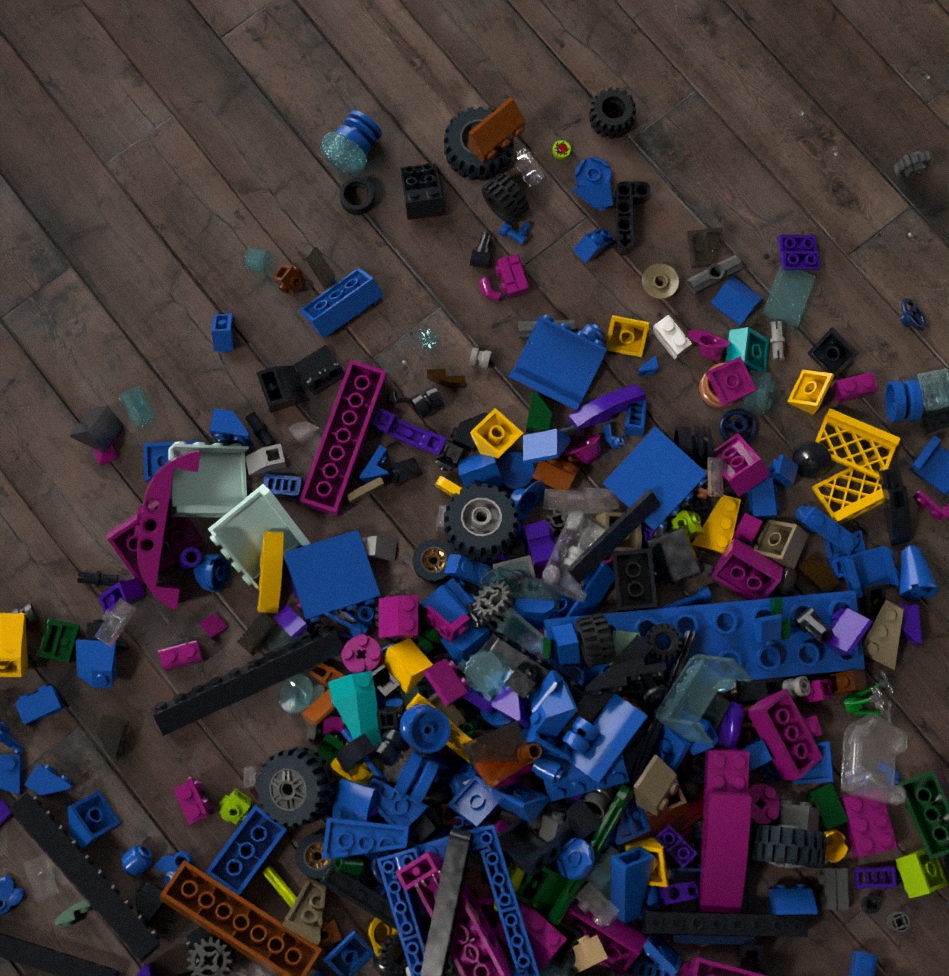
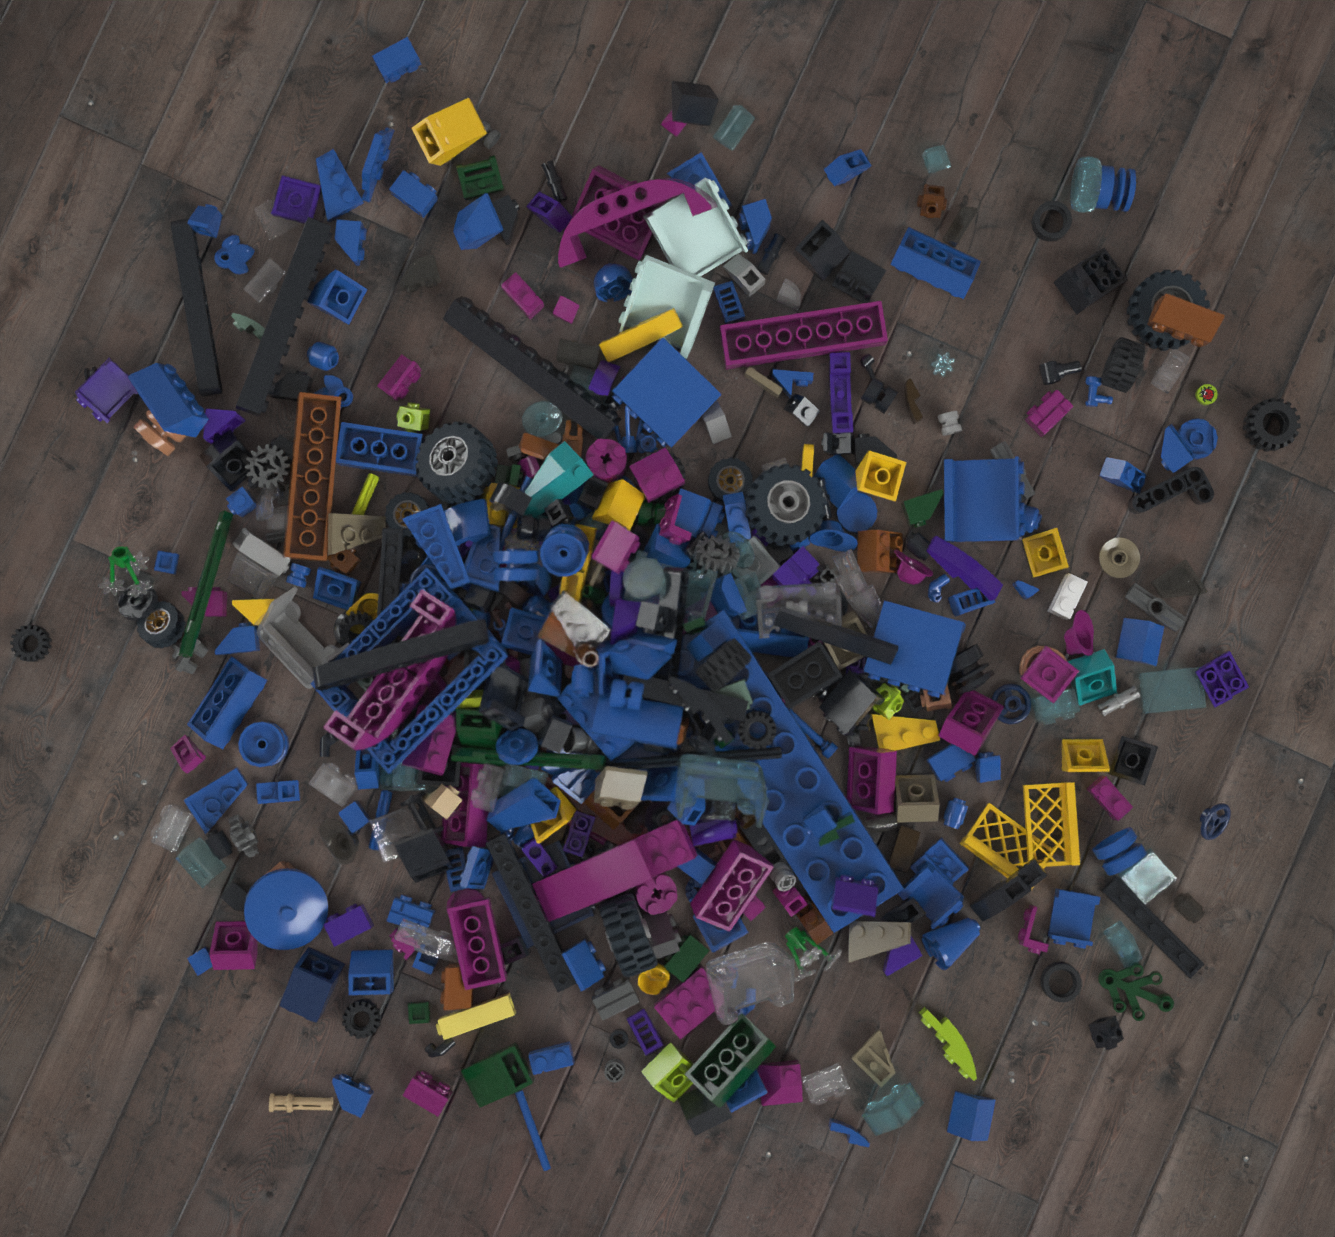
camera: 65 degrees right, 10 degrees up
(115, 622) = (520, 218): clear brick -> none
(192, 555) = (615, 259): dark purple brick -> none
(250, 777) = (444, 416): clear slope -> none
(352, 865) = (411, 548): dark green cone -> none
(487, 291) = (1022, 395): magenta arm -> none
(544, 445) = (891, 527): slope -> none
(715, 477) = (944, 703): clear slope -> none
(747, 528) = (913, 760): magenta brick -> none
(811, 623) = (846, 861): black piece -> none
(812, 451) = (1022, 789): black dish -> none
(830, 530) = (952, 839): blue plate -> none

